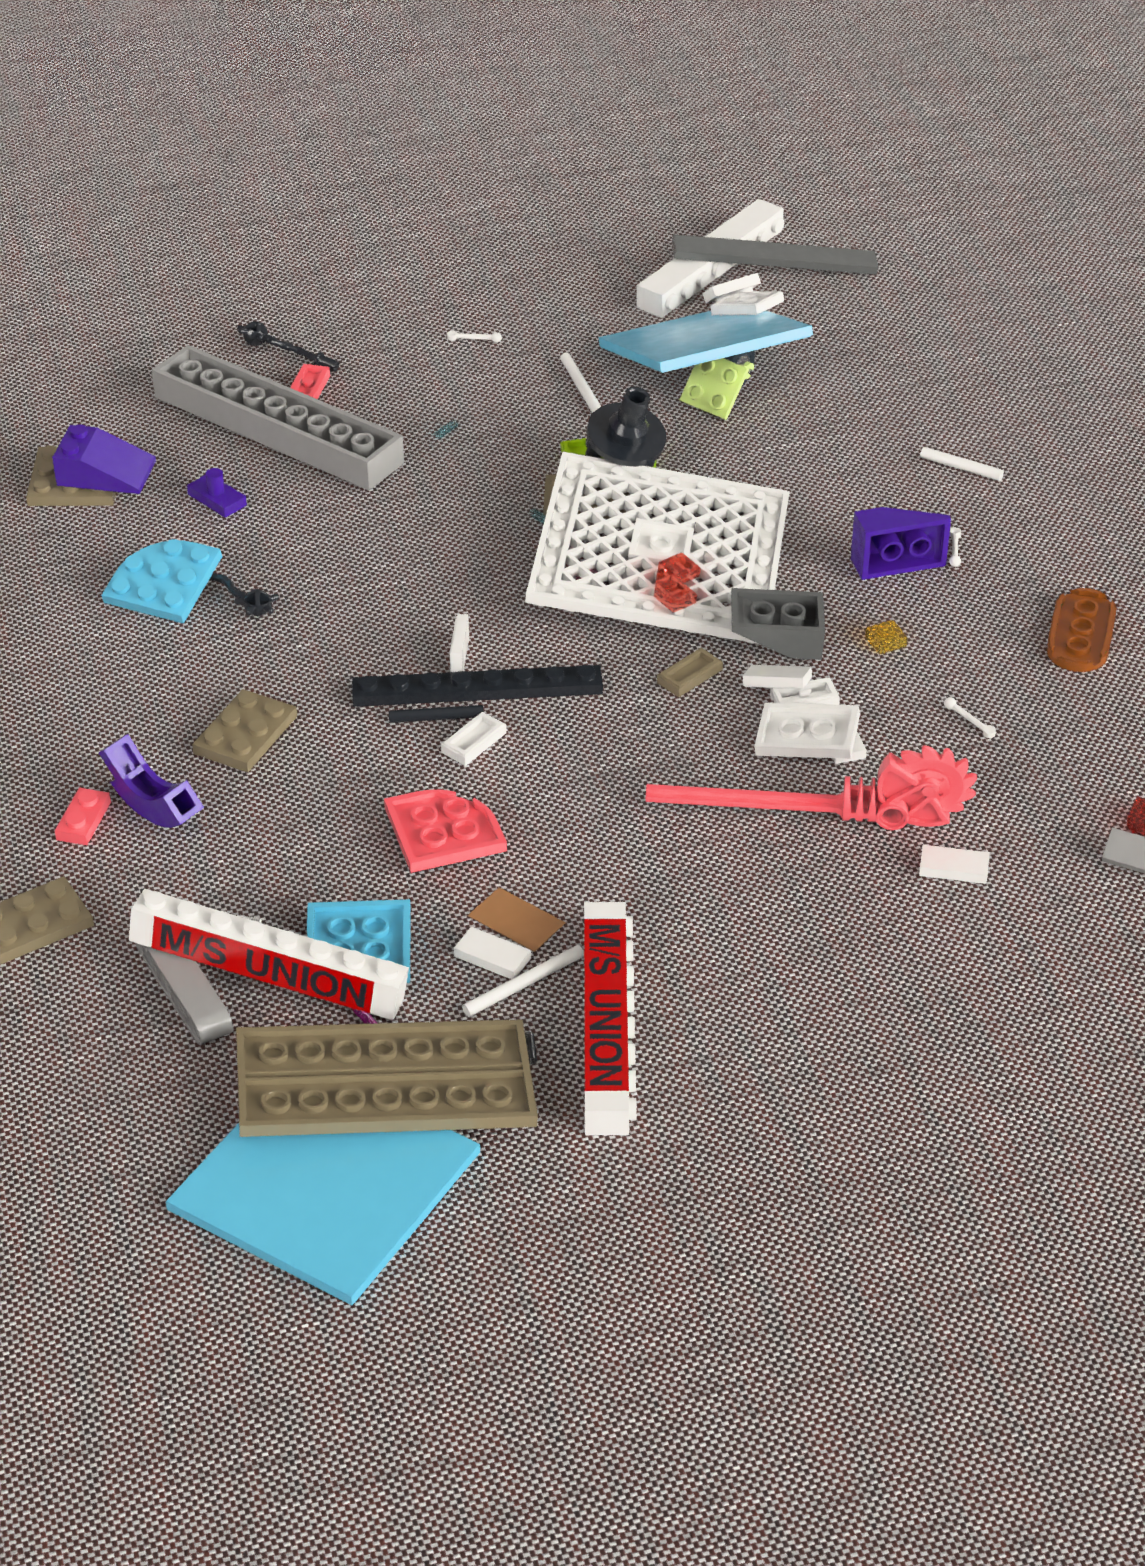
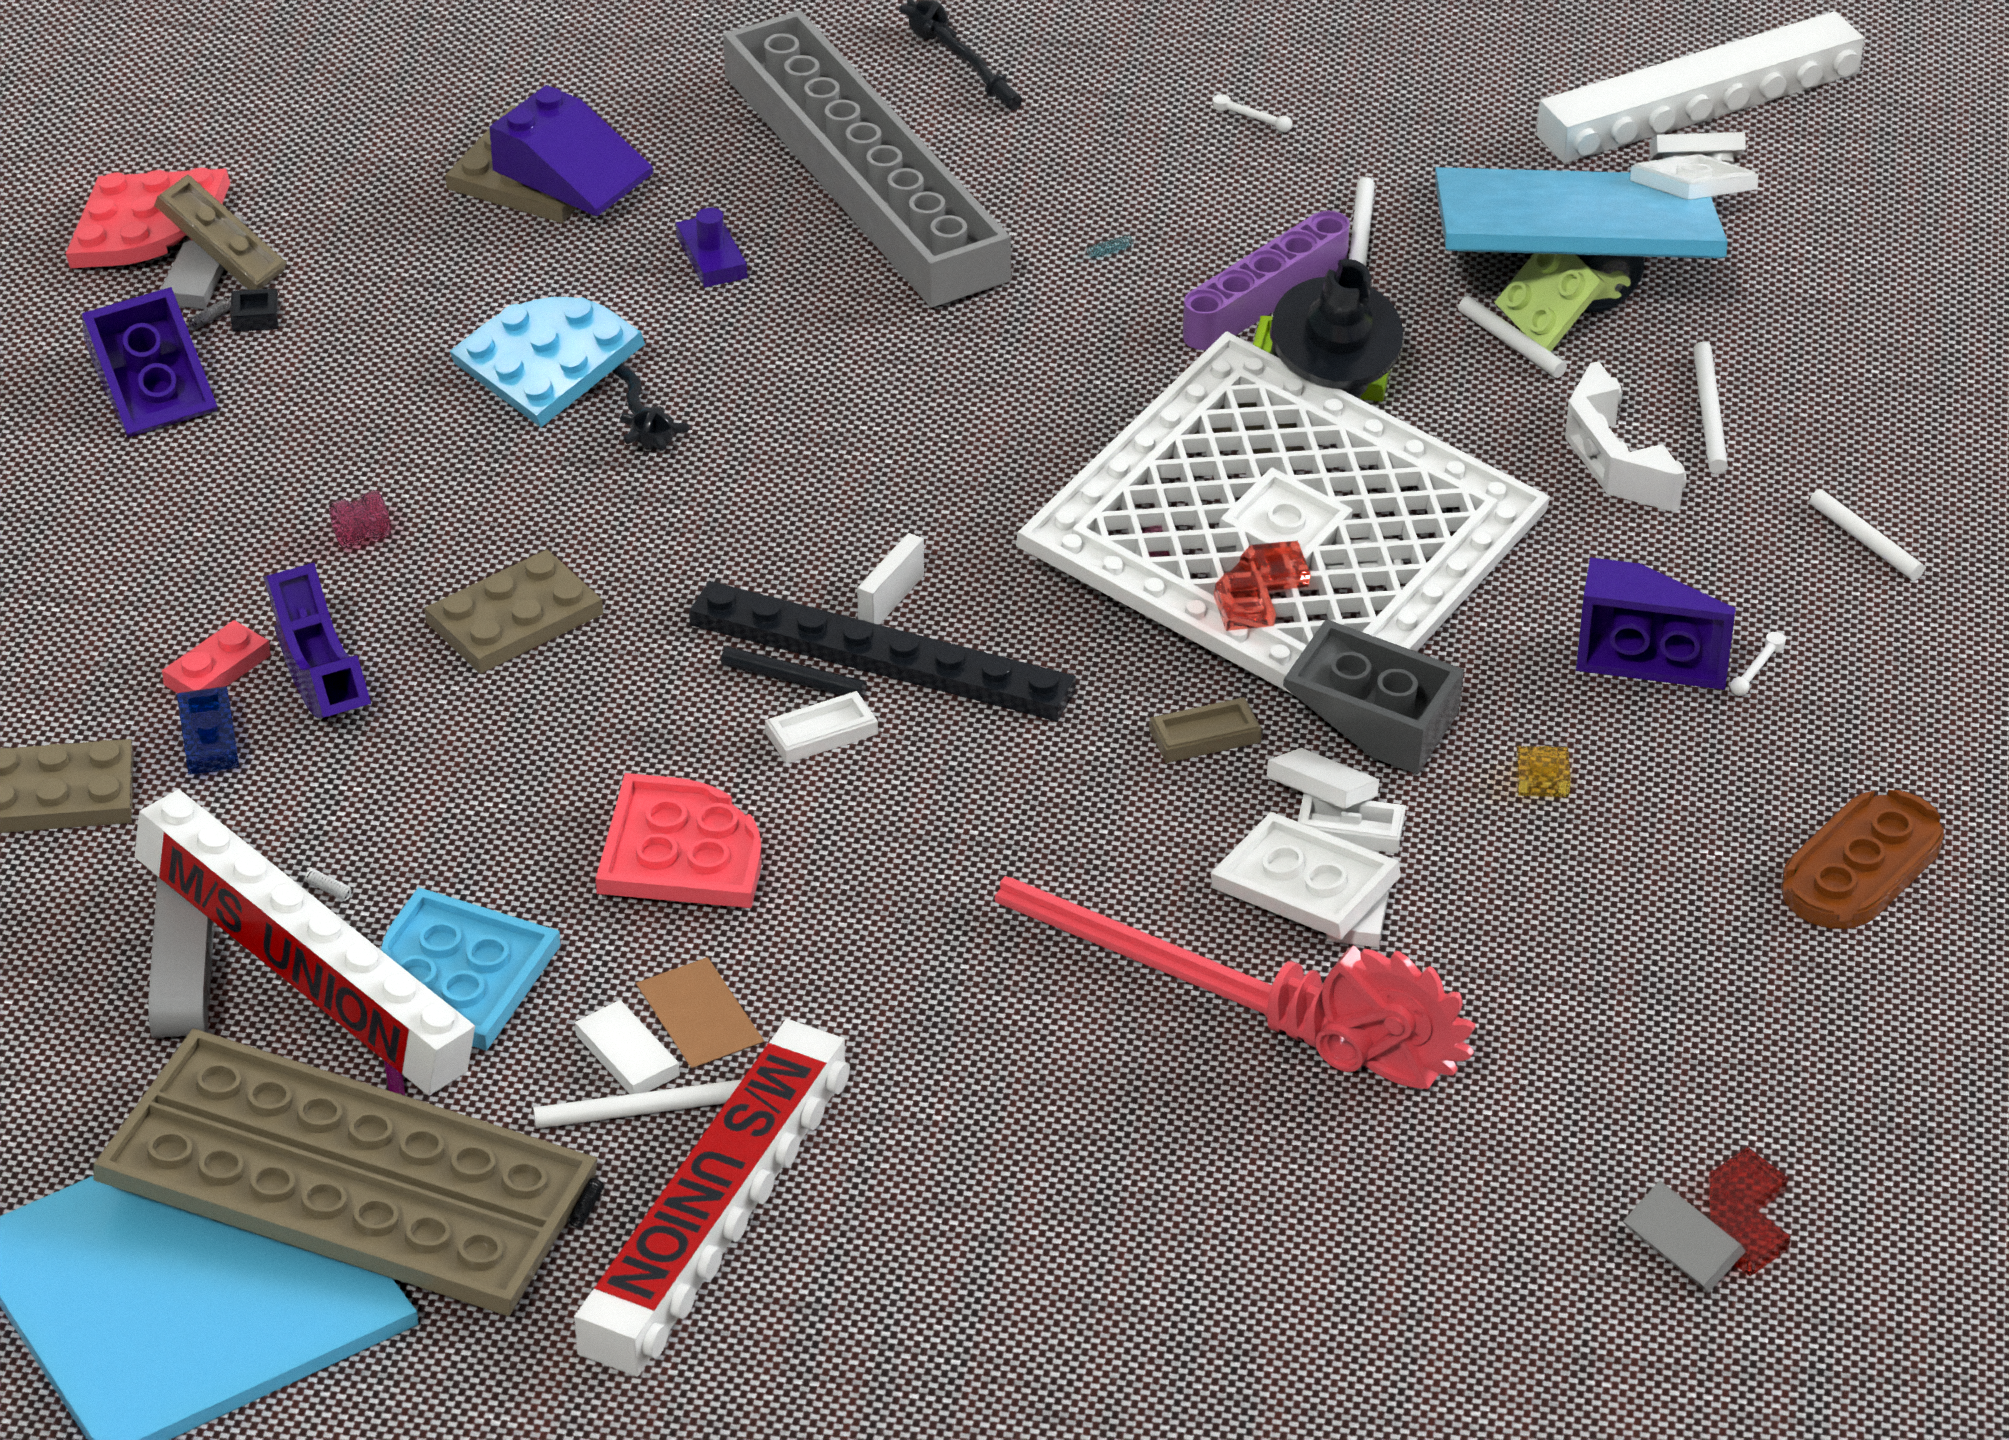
camera: 25 degrees right, 0 degrees up
(109, 856) = (207, 730): none -> clear blue plate
(114, 707) = (360, 519): none -> clear pink wheel
(311, 380) = (953, 119): coral plate -> none
(551, 422) = (1258, 281): none -> medium lavender beam
(703, 415) = (1512, 337): none -> white bar
(774, 254) = (1798, 110): dark grey tile -> none
(829, 467) = (1641, 475): none -> white slope
(834, 422) = (1710, 408): none -> white bar
(954, 864) = (1389, 1153): white tile -> none
(988, 731) = (1596, 968): white hinge -> none

